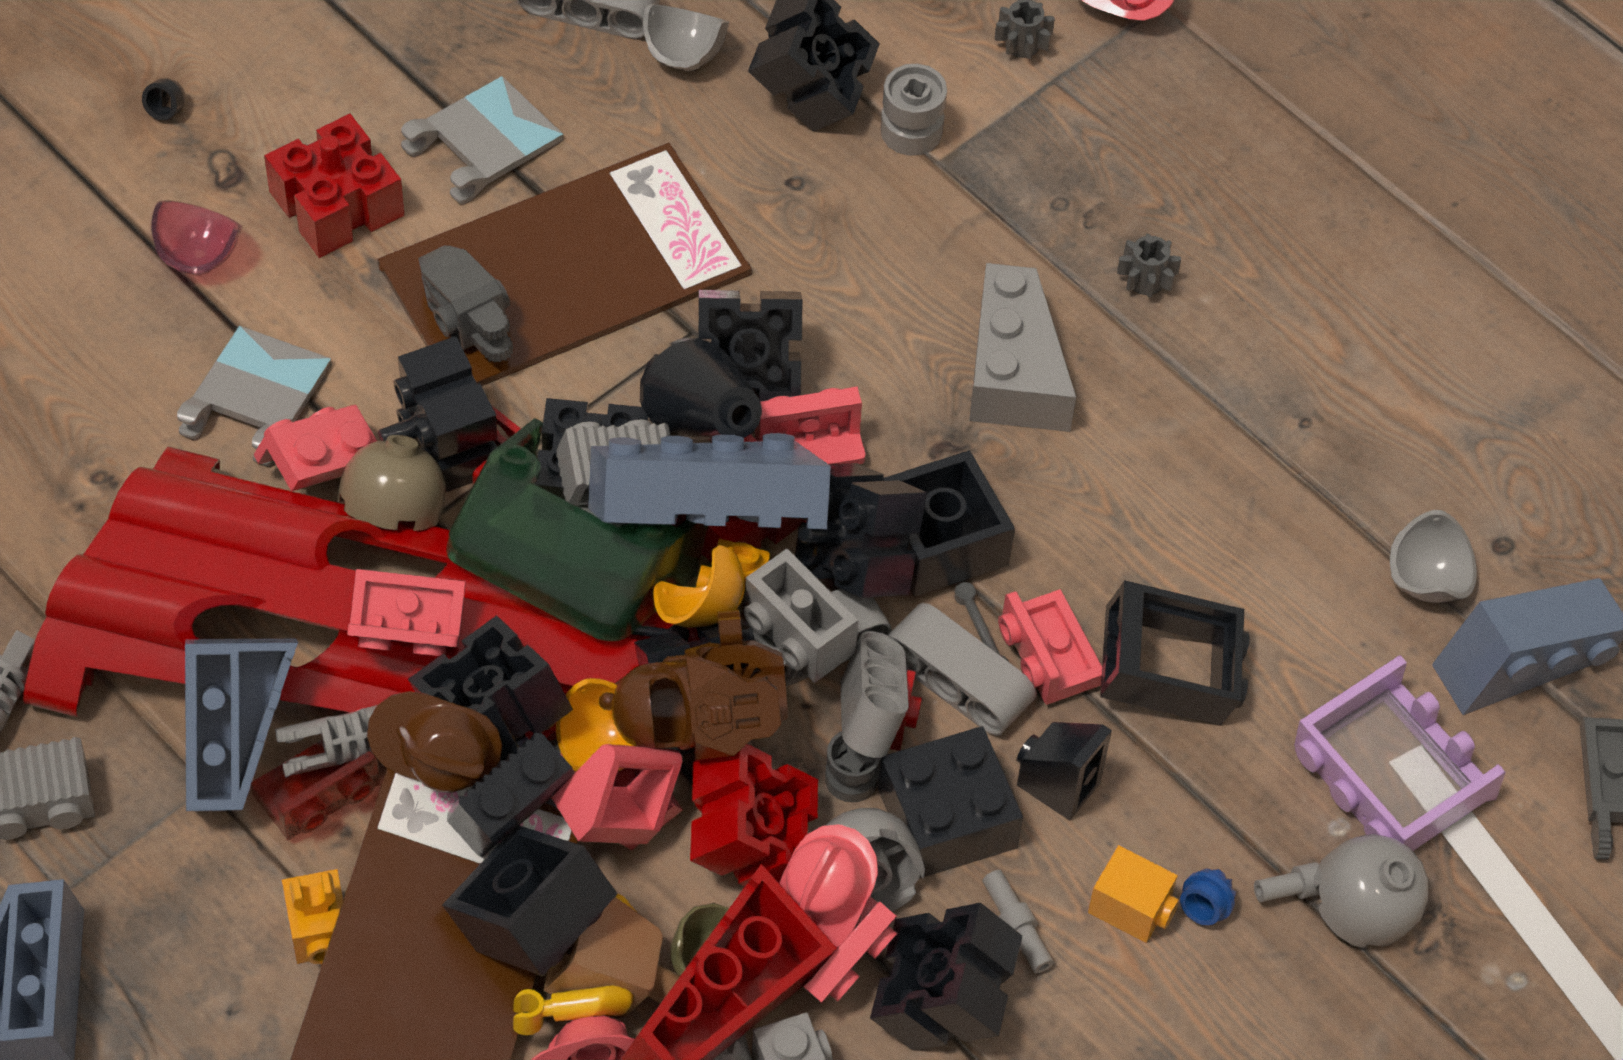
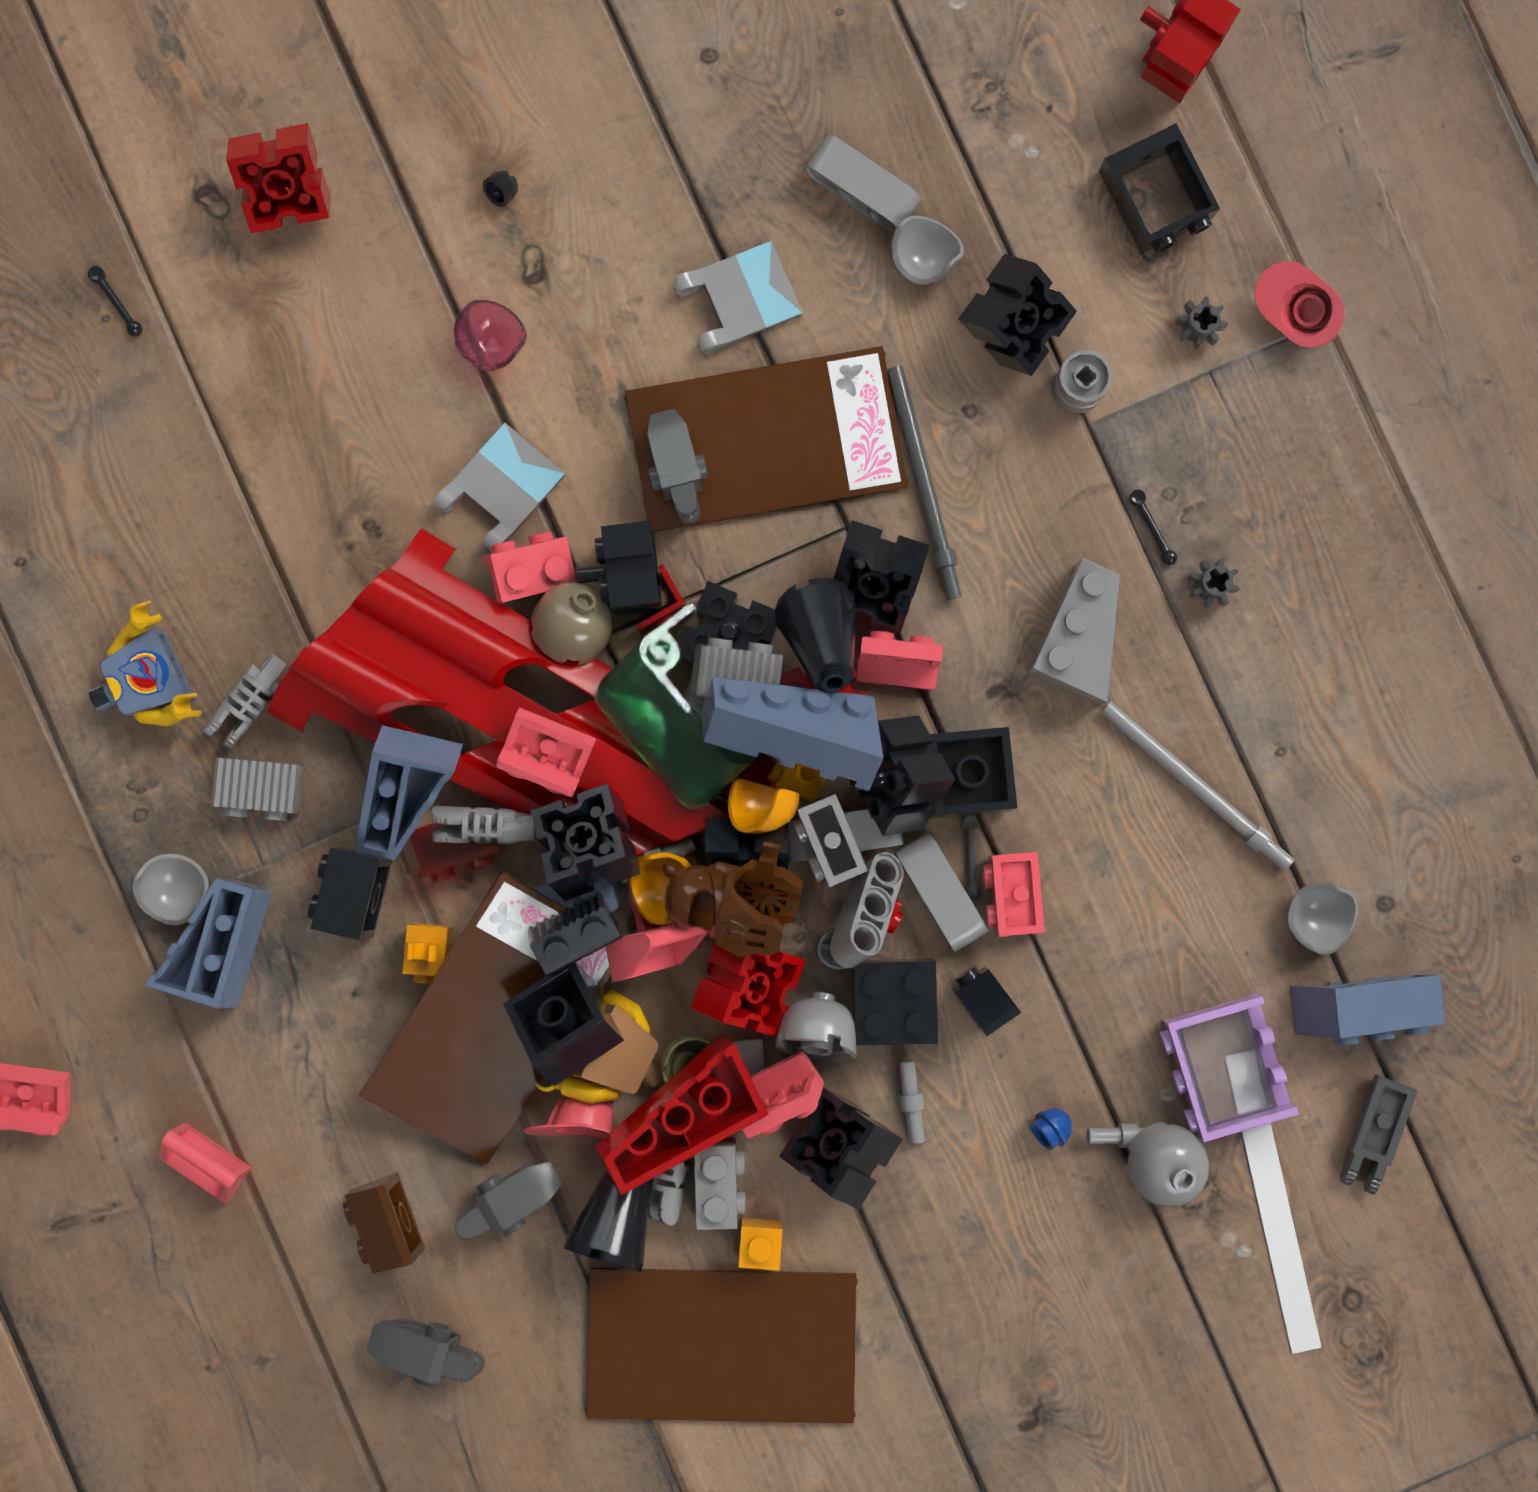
camera: 20 degrees right, 30 degrees up
(193, 862) = (349, 893): none -> black brick
(334, 185) = (608, 318): red brick -> none
(433, 741) = (529, 891): reddish brown piece -> none
(820, 322) = (943, 558): none -> dark grey bar
(832, 878) = (780, 1057): coral piece -> none
(1026, 216) = (1138, 498): none -> black hinge
(1134, 895) = (999, 1113): light orange brick -> none
(1184, 615) = (1064, 922): black window -> none
(1317, 510) = (1256, 836): none -> light grey bar

